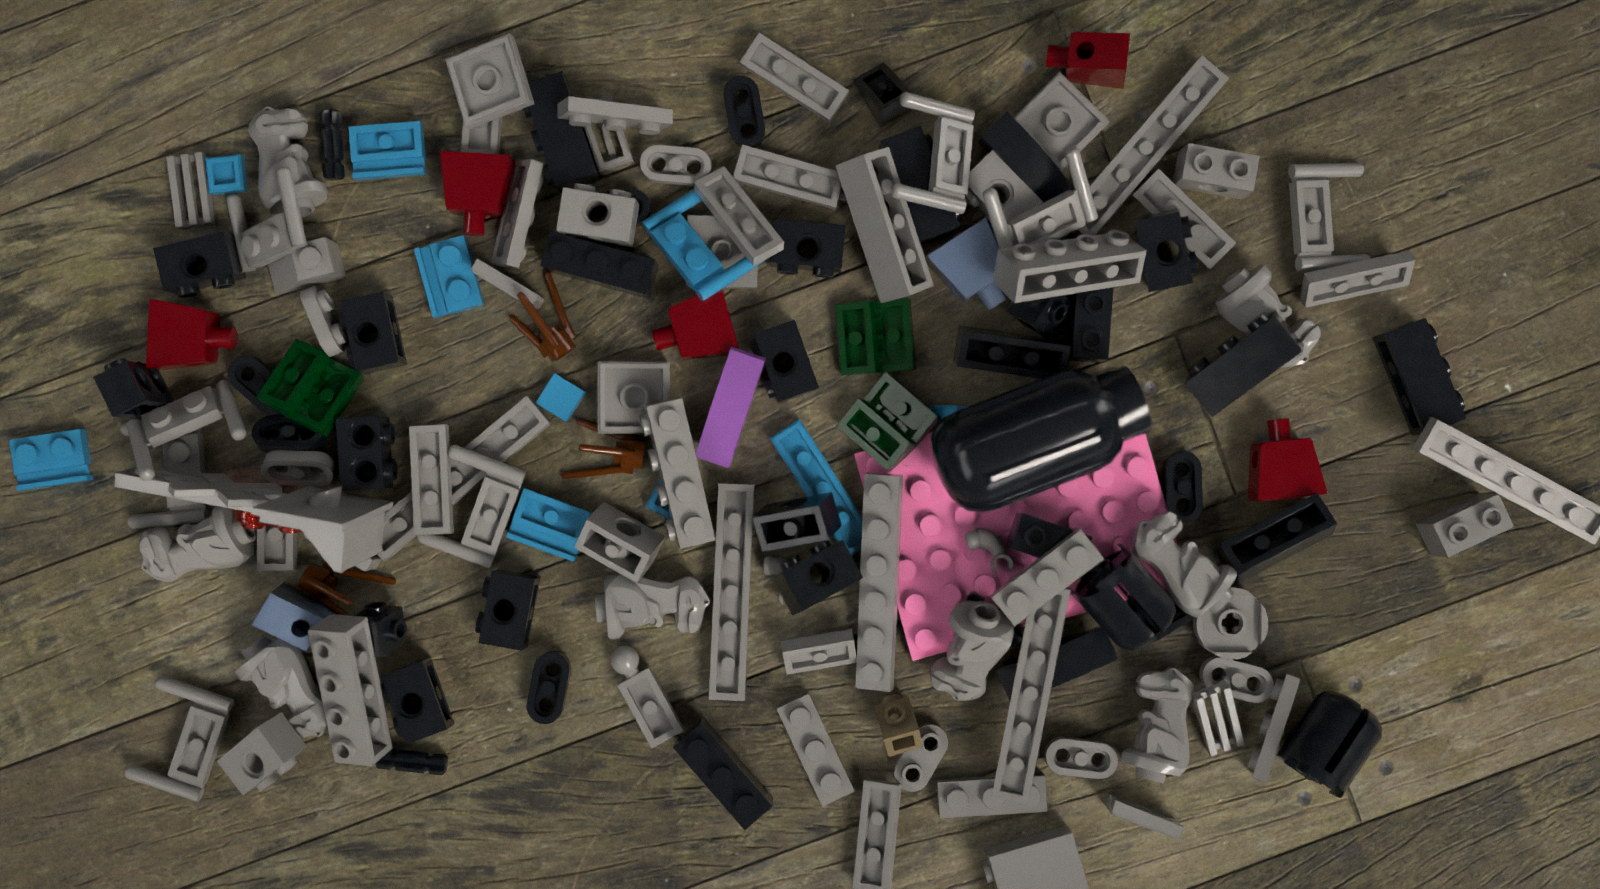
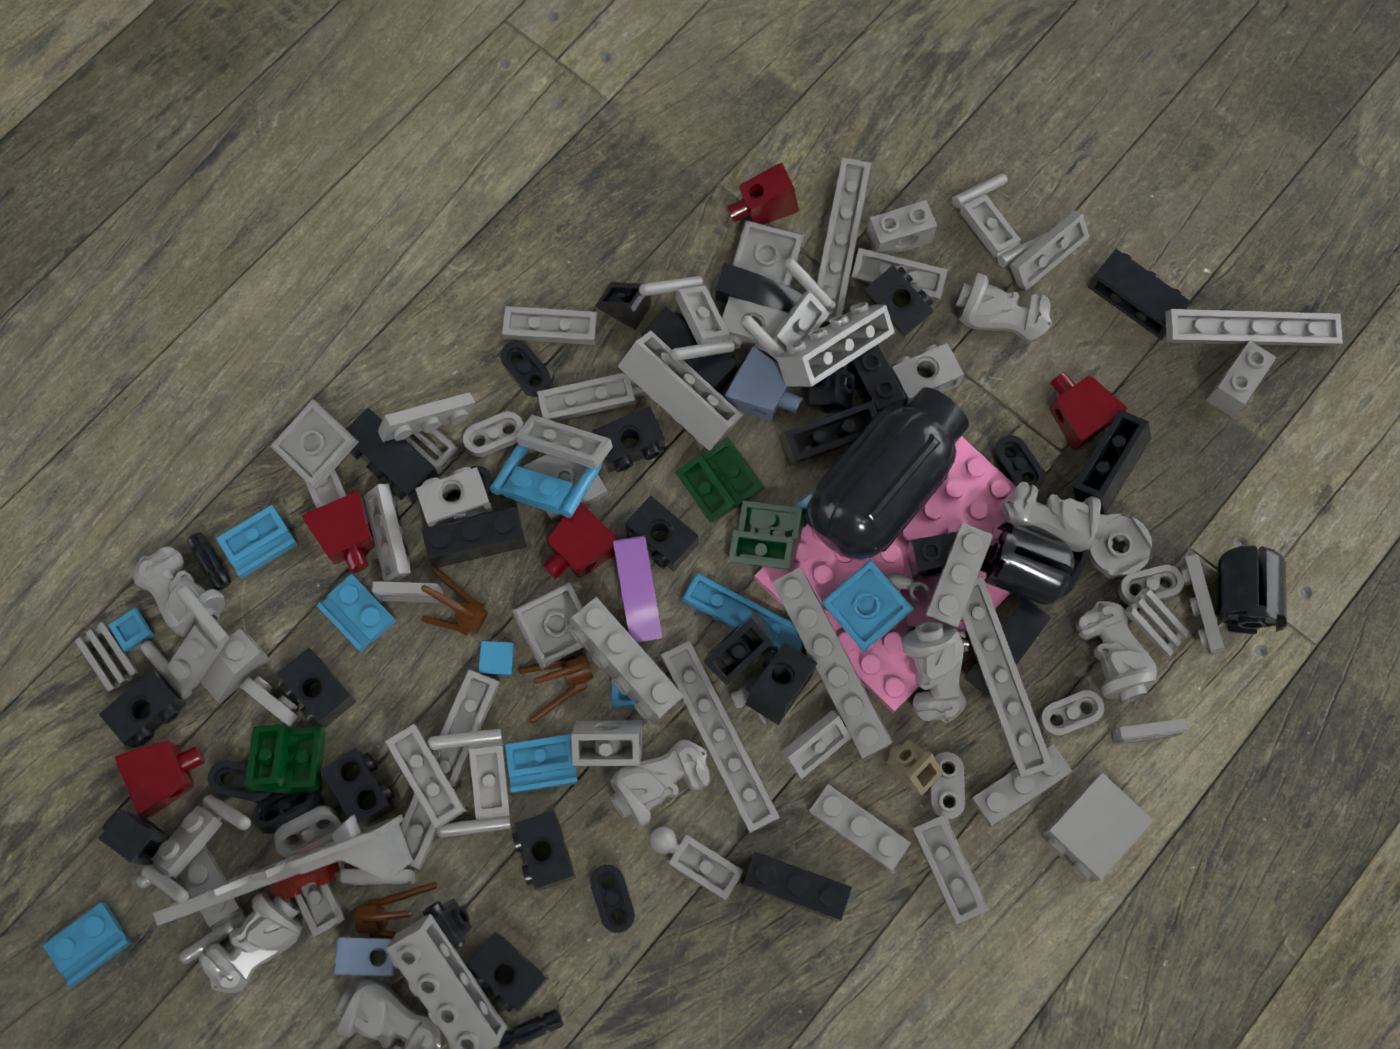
camera: 30 degrees left, 15 degrees down
(944, 550) = (867, 605): none -> dark azure tile
(1166, 347) = (937, 361): none -> light grey brick
(1243, 362) = (1005, 347): black brick -> none

